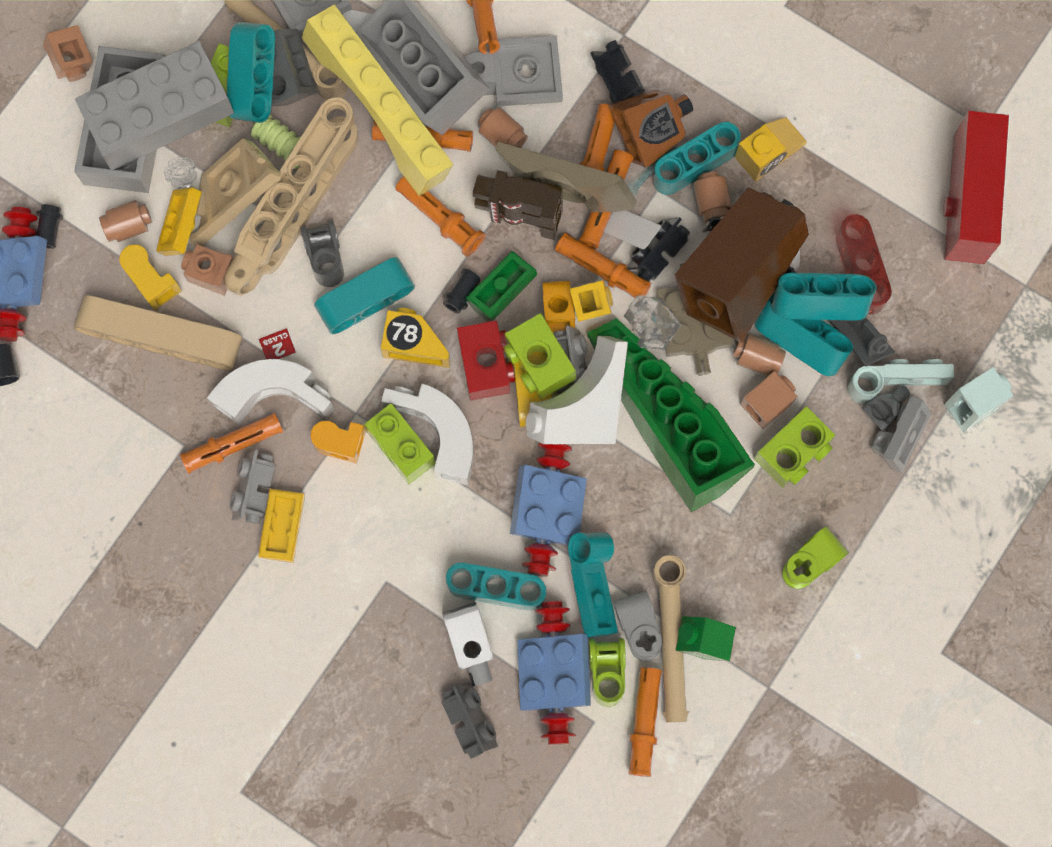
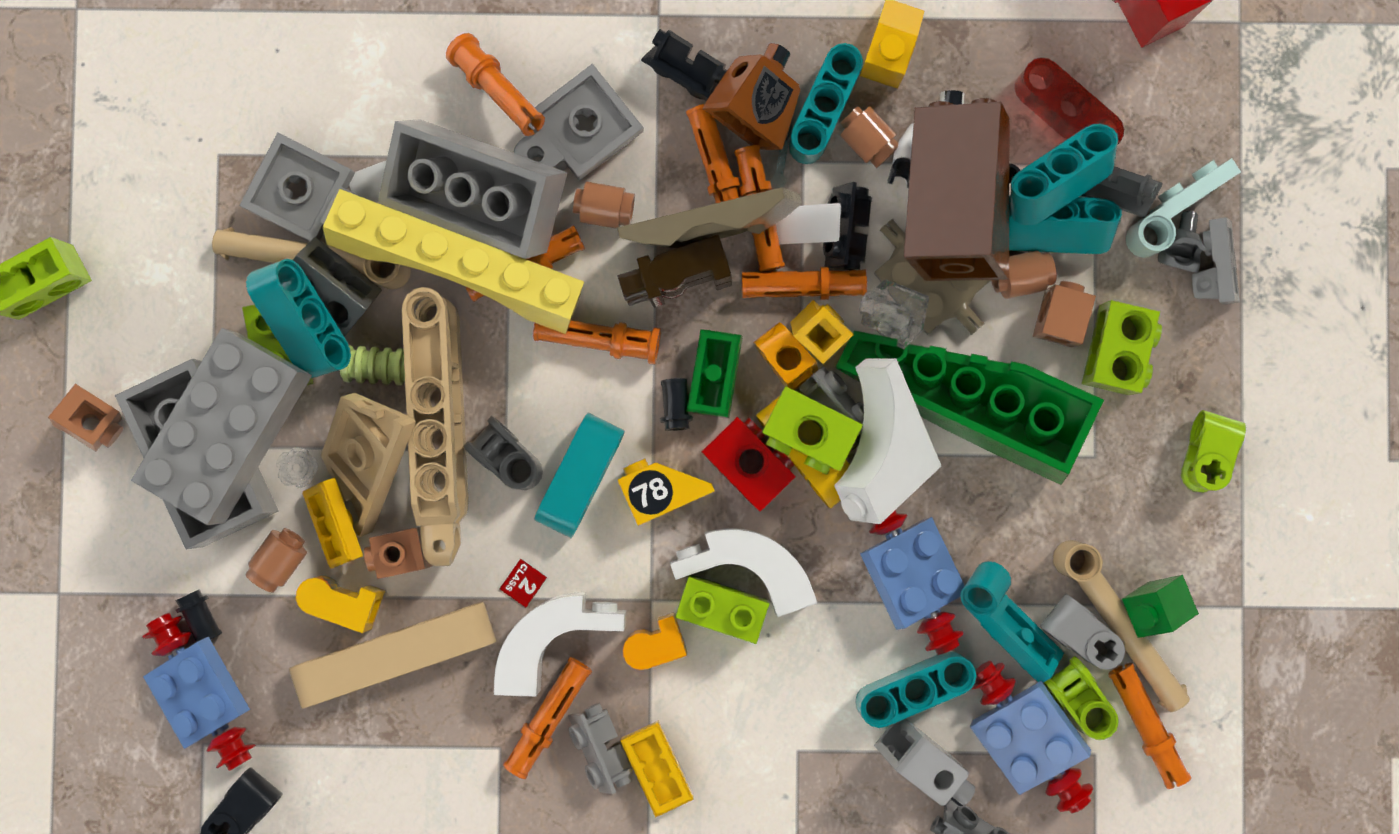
camera: 35 degrees left, 10 degrees up
(979, 399) = (1282, 179): light aqua brick -> none

